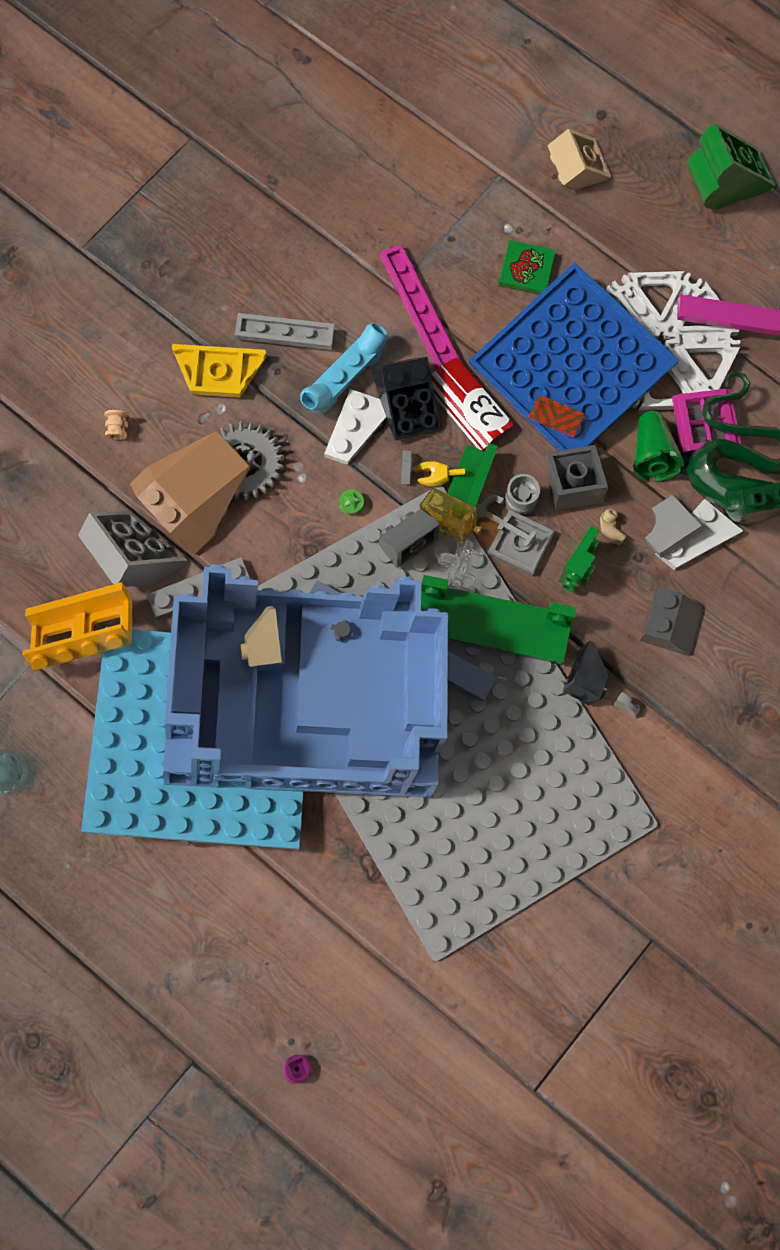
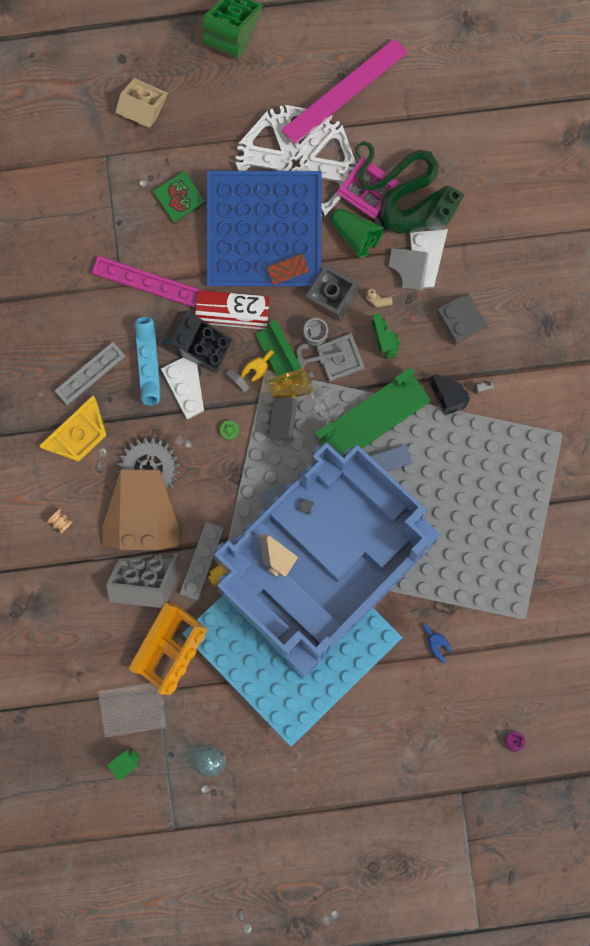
camera: 45 degrees left, 10 degrees up
(326, 889) = (435, 641): none -> blue hand

